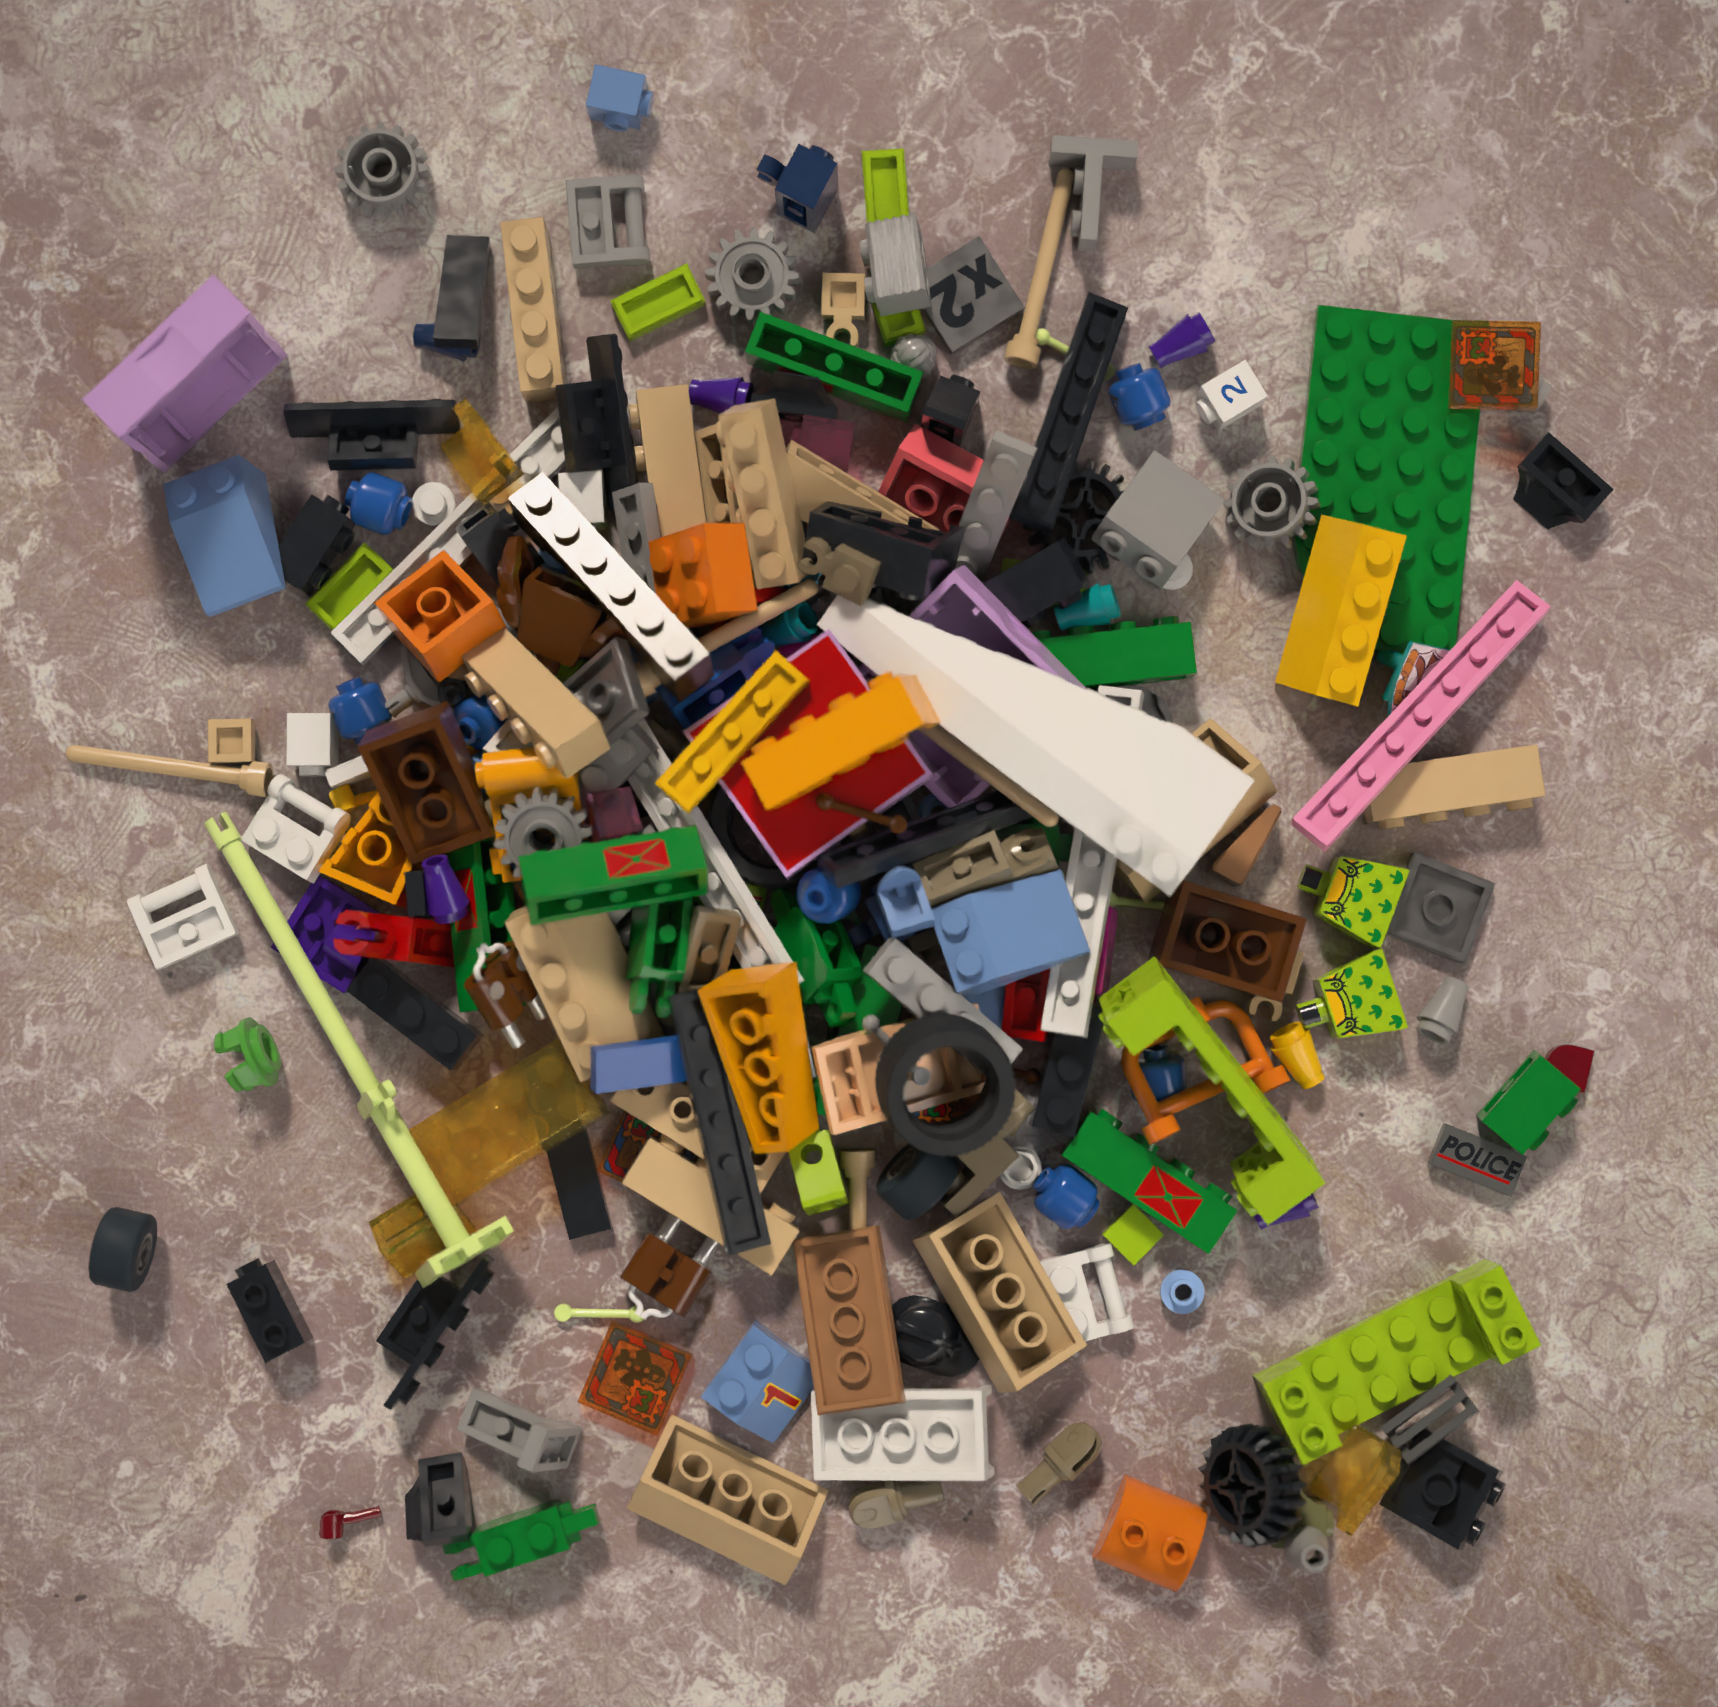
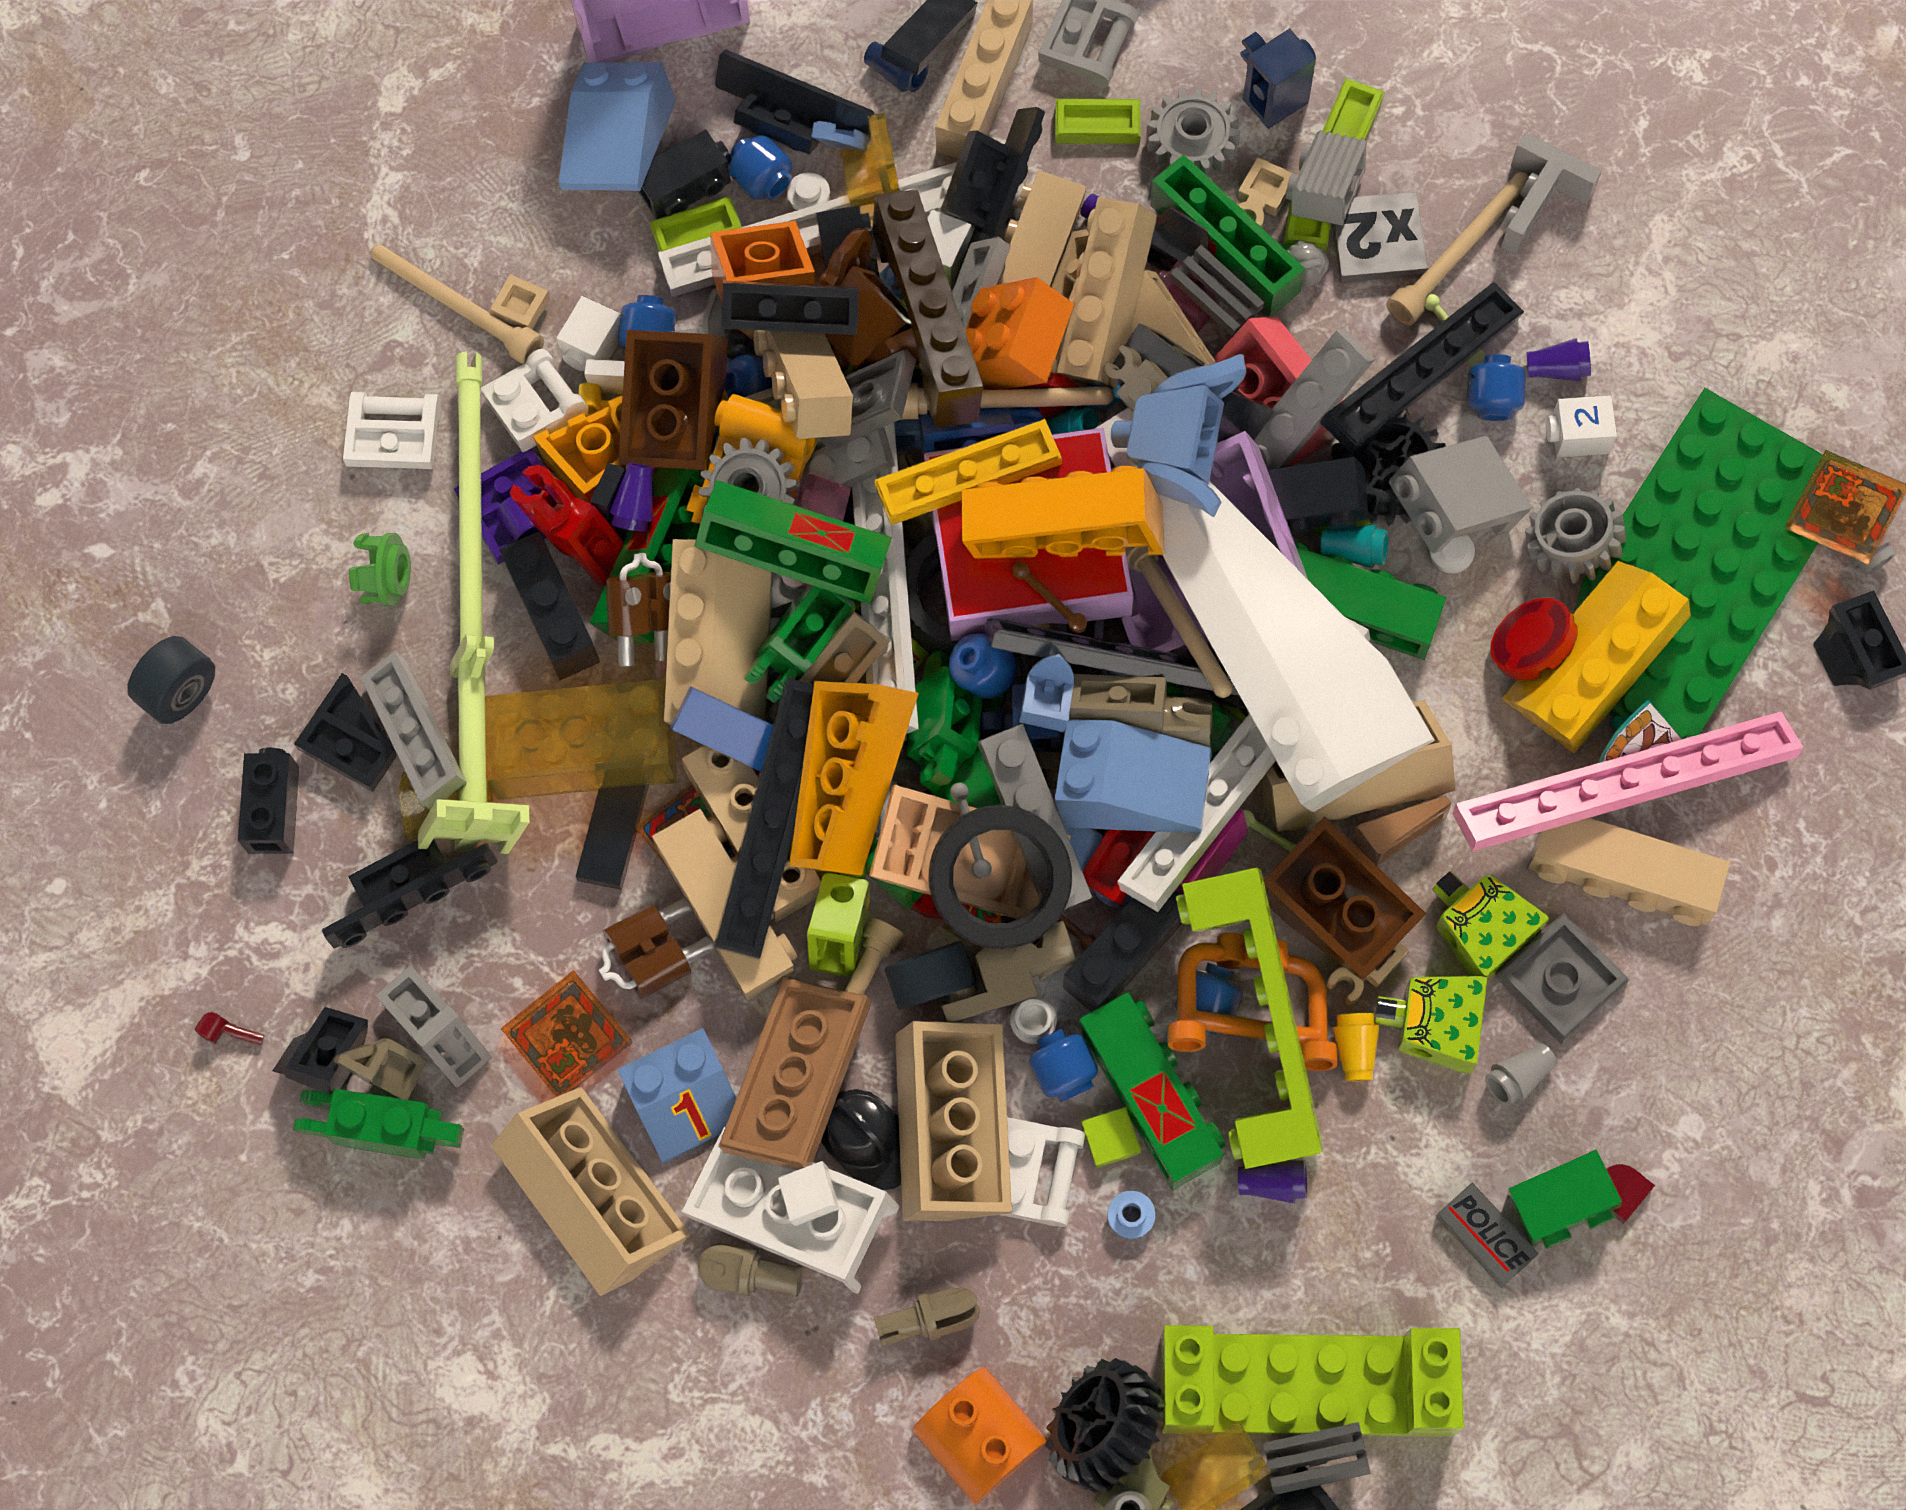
camera: 30 degrees right, 15 degrees down
(304, 1216) = (347, 737): none -> black wing
(361, 1189) = (413, 730): none -> light grey plate
(435, 437) = (836, 138): none -> medium blue tile
(492, 653) = (790, 307): none -> black brick
(497, 1487) = (385, 1066): none -> dark tan slope
(565, 1312) = (534, 944): yellowish green hinge -> none
(825, 403) = (1225, 277): none -> dark grey tile
(902, 613) = (1179, 429): none -> medium blue torso
(916, 1422) = (808, 1193): none -> white tile
(951, 408) = (1314, 316): black slope -> none
(1281, 621) = (1533, 638): none -> red tile

